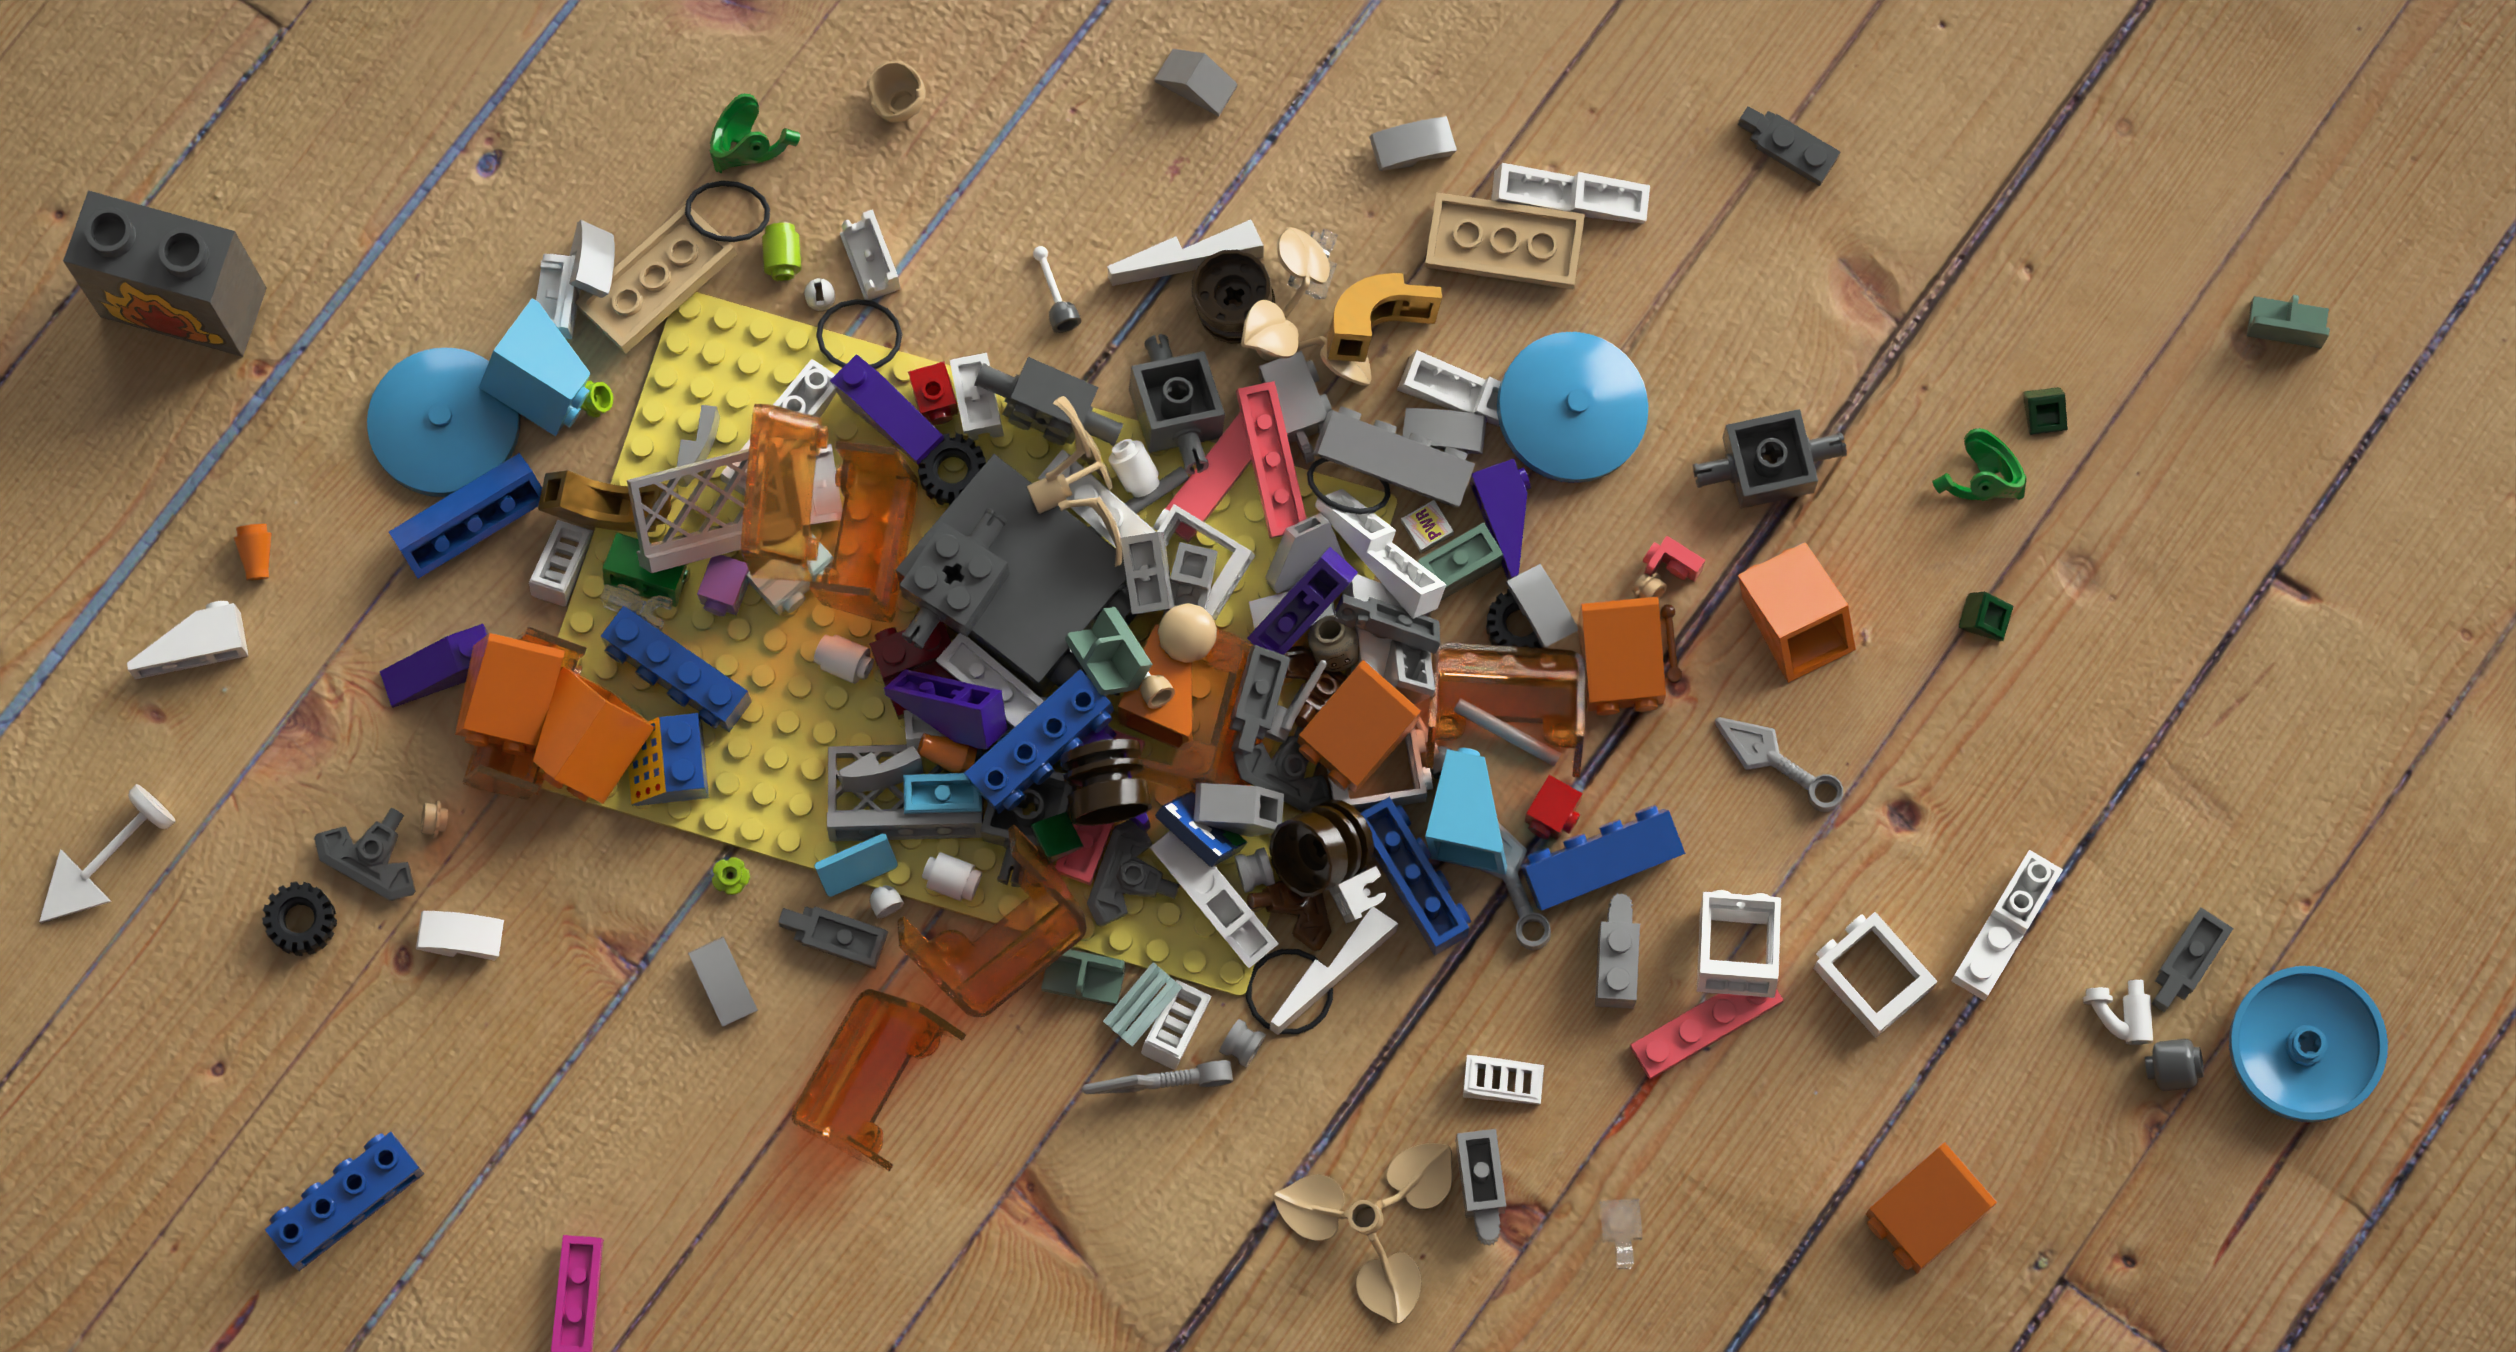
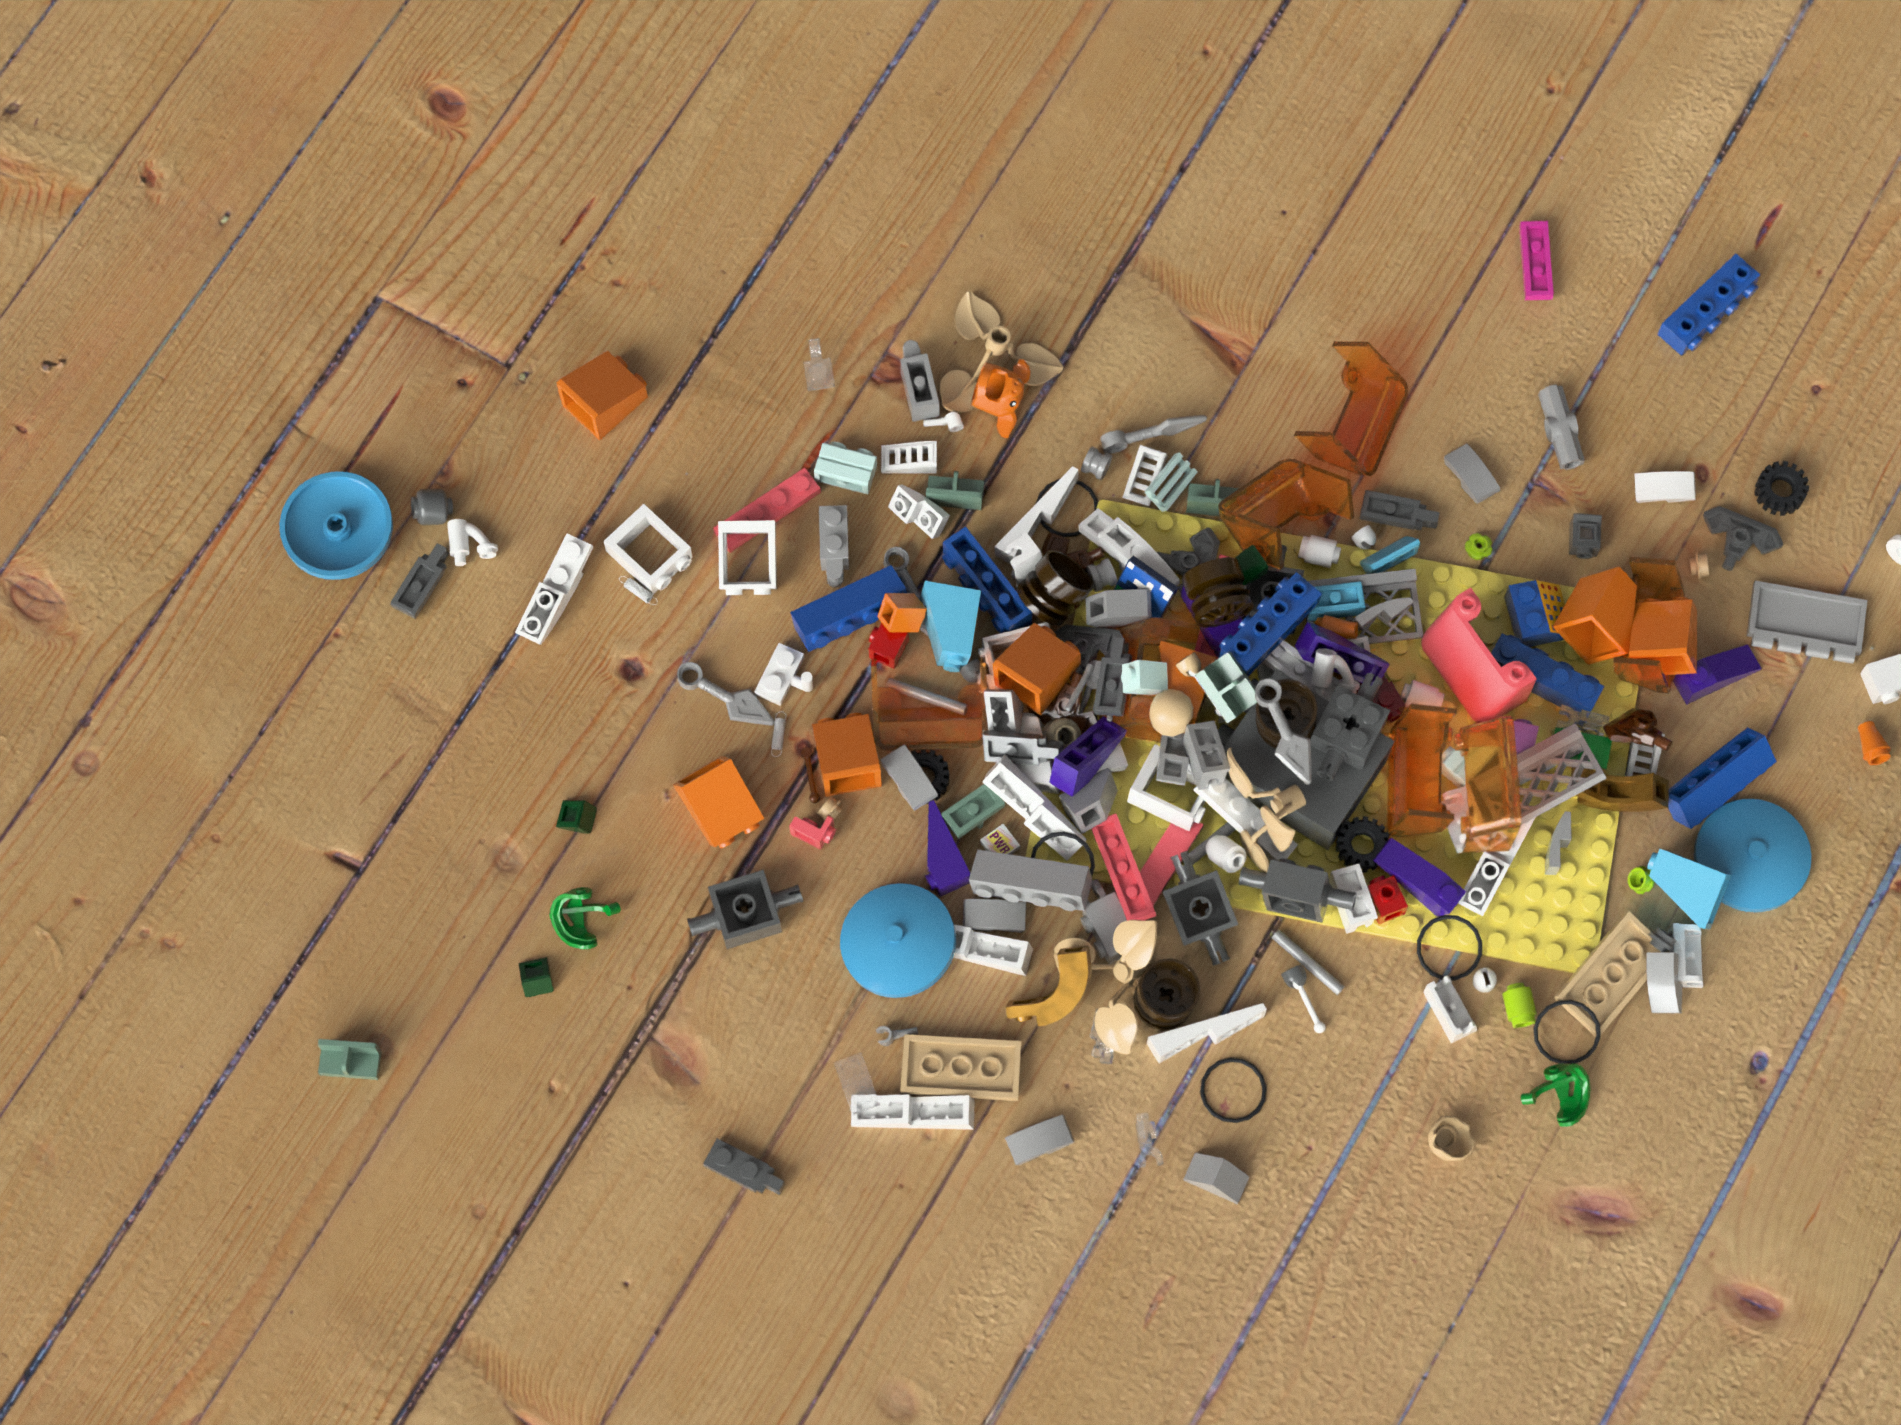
camera: 175 degrees right, 5 degrees down
(305, 733) = (1806, 619): none -> light grey hinge
(570, 585) = (1637, 727): none -> reddish brown piece
(583, 872) = (1585, 535): none -> dark grey window
(586, 303) = (1662, 940): none -> dark grey plate
(587, 1036) = (1561, 427): none -> light grey piece
(796, 730) = (1469, 666): none -> coral windscreen
(975, 674) = (1323, 670): none -> white plant
(1035, 575) = (1295, 701): none -> dark brown wheel
(1038, 528) = (1293, 748): none -> light grey piece
(1043, 336) = (1308, 962): none -> light grey bar
(1168, 224) = (1236, 1060): none -> black piece
(1217, 684) = (1144, 677): none -> light aqua brick
(1279, 136) = (1145, 1133): none -> clear plate
(1366, 1156) = (1000, 393): none -> orange piece
(1435, 1129) = (952, 419): none -> white hand
(1443, 1021) = (955, 492): none -> sand green panel
(1508, 1004) = (916, 508): none -> white slope
(1533, 833) = (902, 612): none -> orange brick
(1586, 293) = (895, 1034): none -> light grey hand
(1593, 1070) = (845, 467): none -> light aqua brick
(1639, 232) = (857, 1083): none -> clear slope
(1701, 784) = (781, 675): none -> white plate
(1710, 702) = (778, 734): none -> white piece
(1892, 922) = (638, 590): none -> white piece

